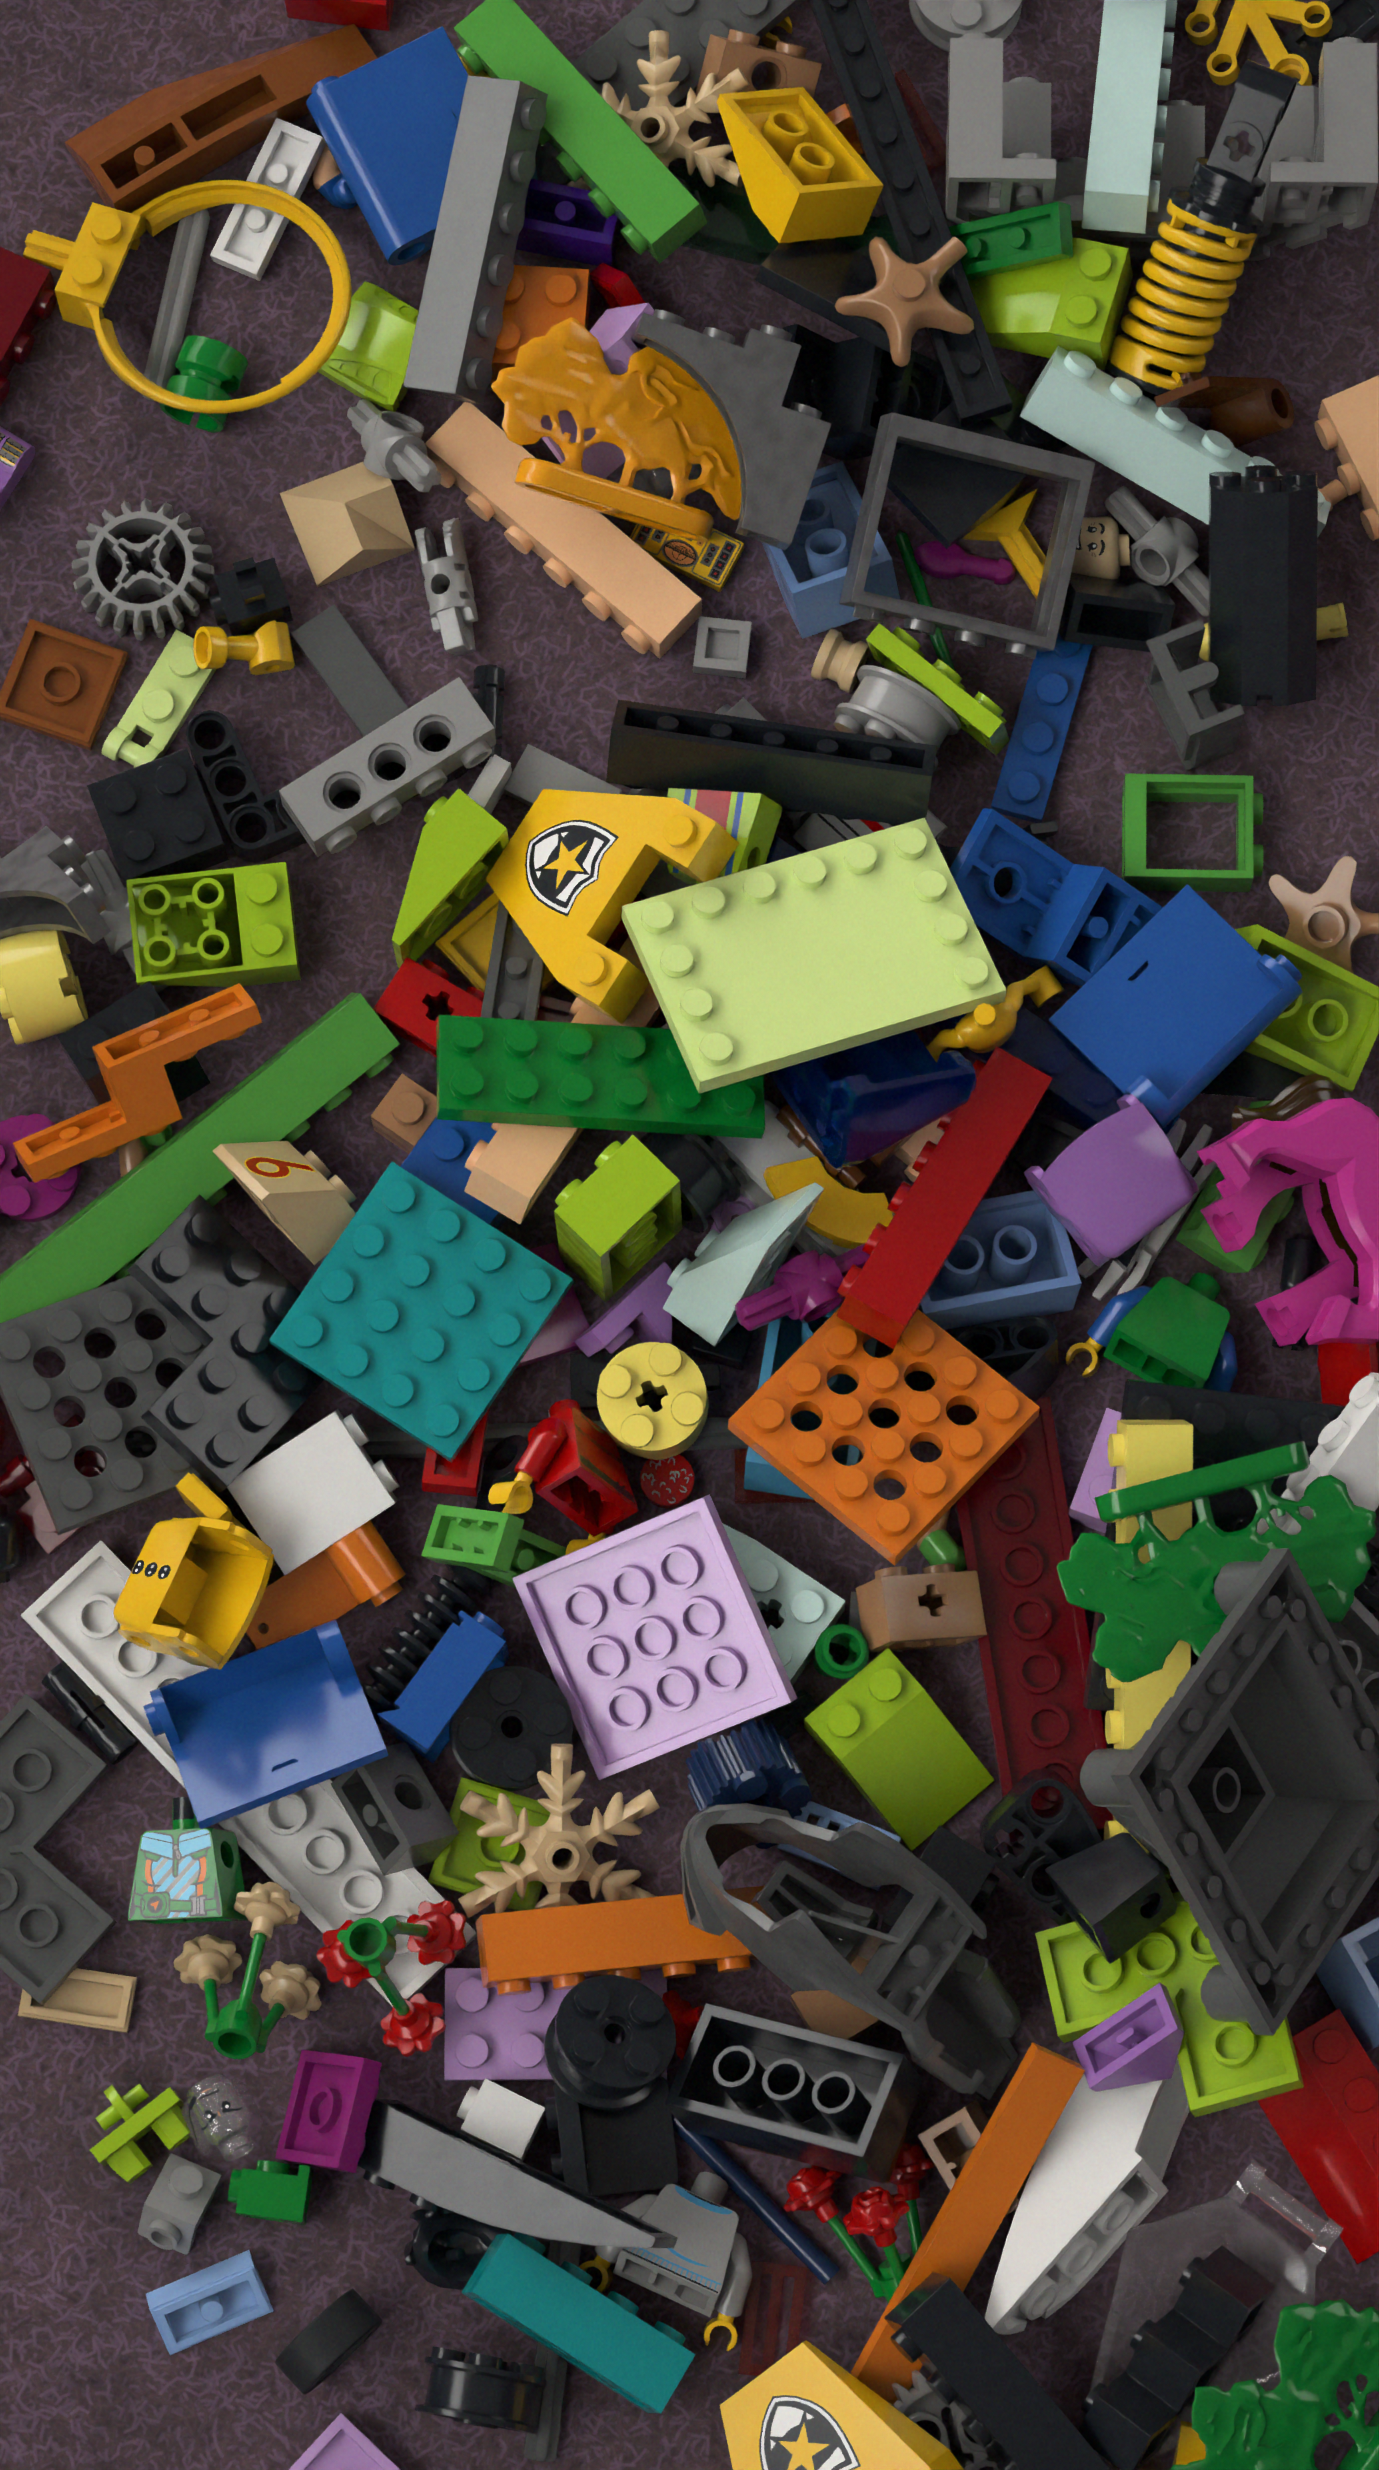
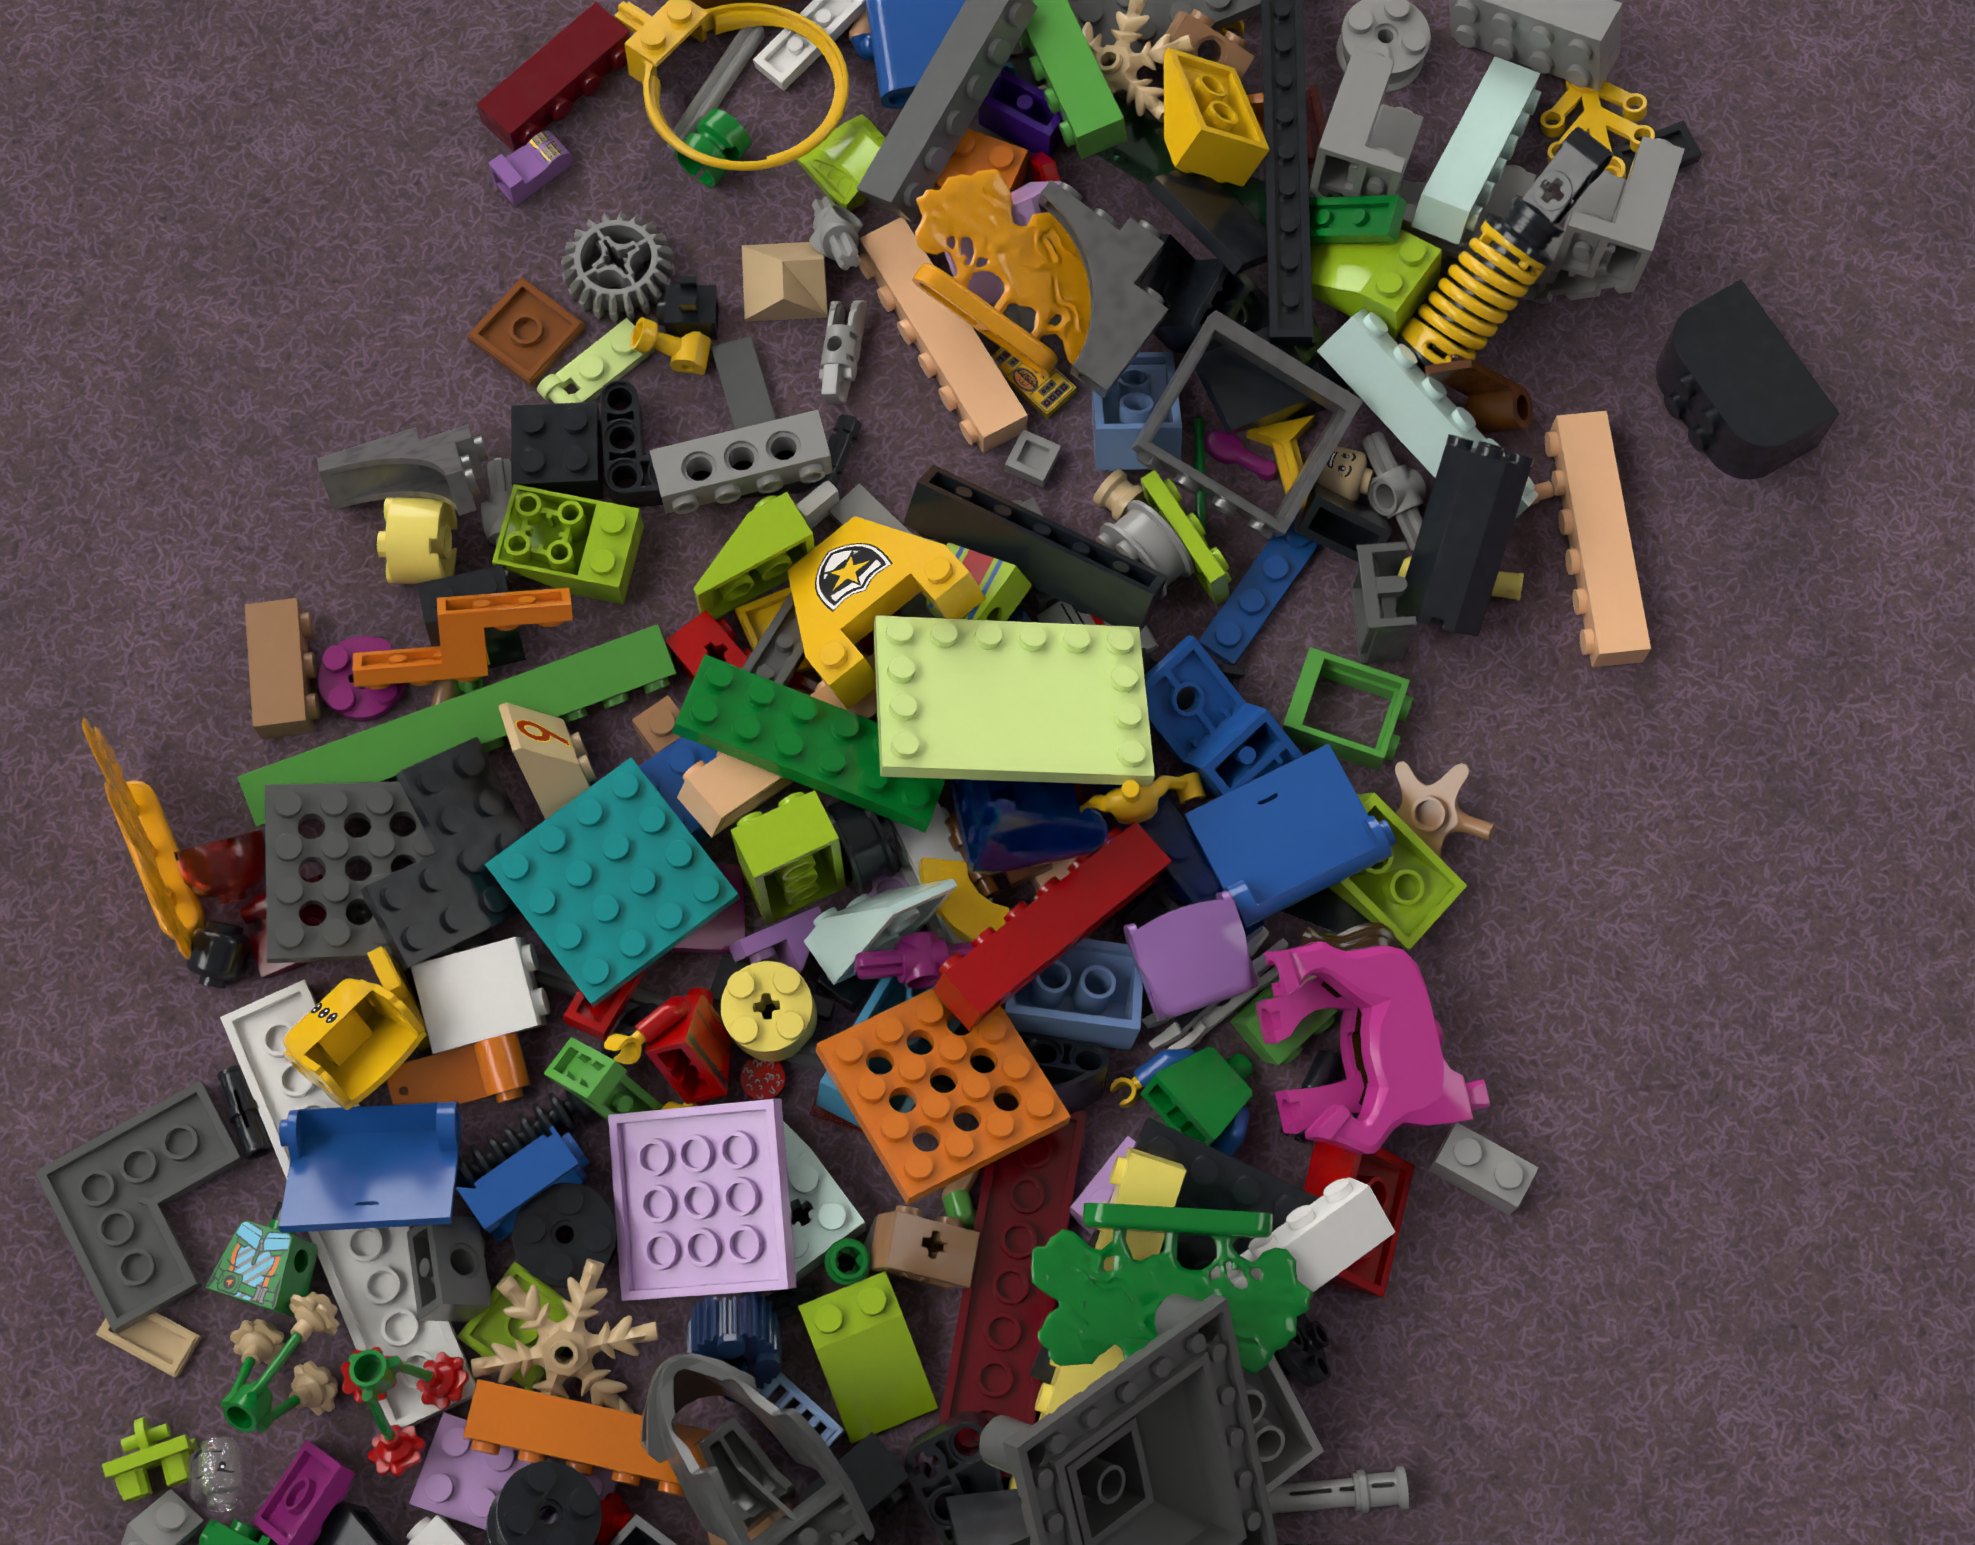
camera: 15 degrees right, 5 degrees down
(908, 296) = (1260, 234): medium nougat animal -> none

